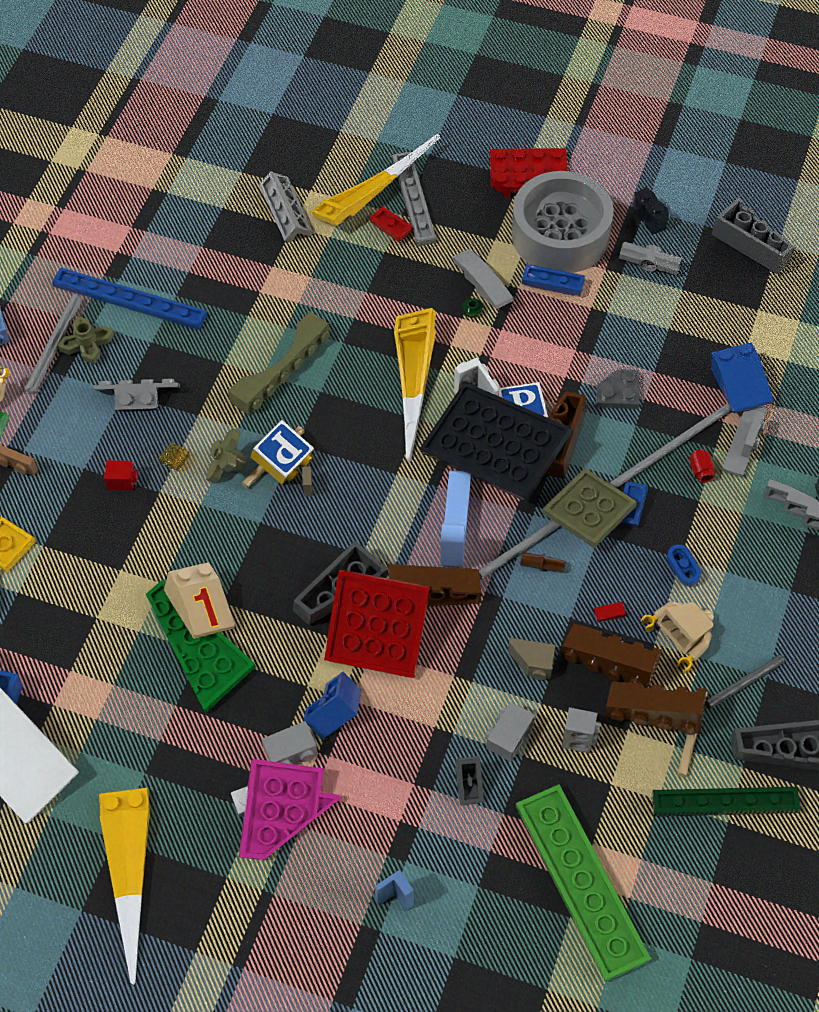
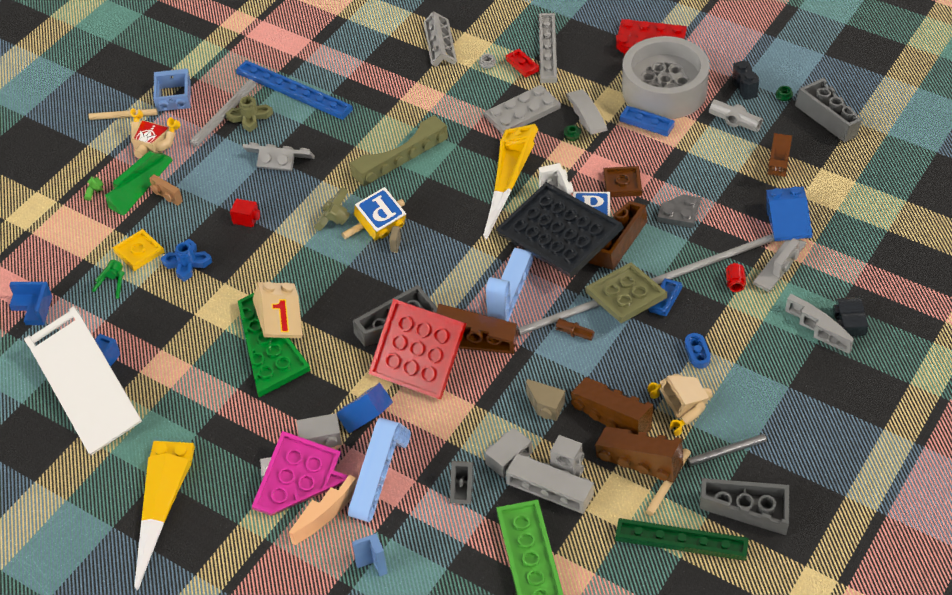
camera: 15 degrees right, 10 degrees down
(67, 549) = (185, 259): none -> blue plant
(174, 456) = (292, 206): clear yellow plate -> none
(319, 849) = (319, 514): none -> light nougat slope
(349, 202) = (494, 42): yellow plate -> none
(349, 227) = (487, 61): none -> light grey plate
(371, 782) = (375, 467): none -> light blue beam
(406, 285) = (522, 109): none -> light grey plate
(545, 362) = (622, 181): none -> reddish brown tile
(567, 761) = (550, 483): none -> light grey brick
(610, 612) = (622, 377): red piece -> none
(696, 221) = (784, 93): none -> dark green plate
(712, 304) = (779, 155): none -> reddish brown arch

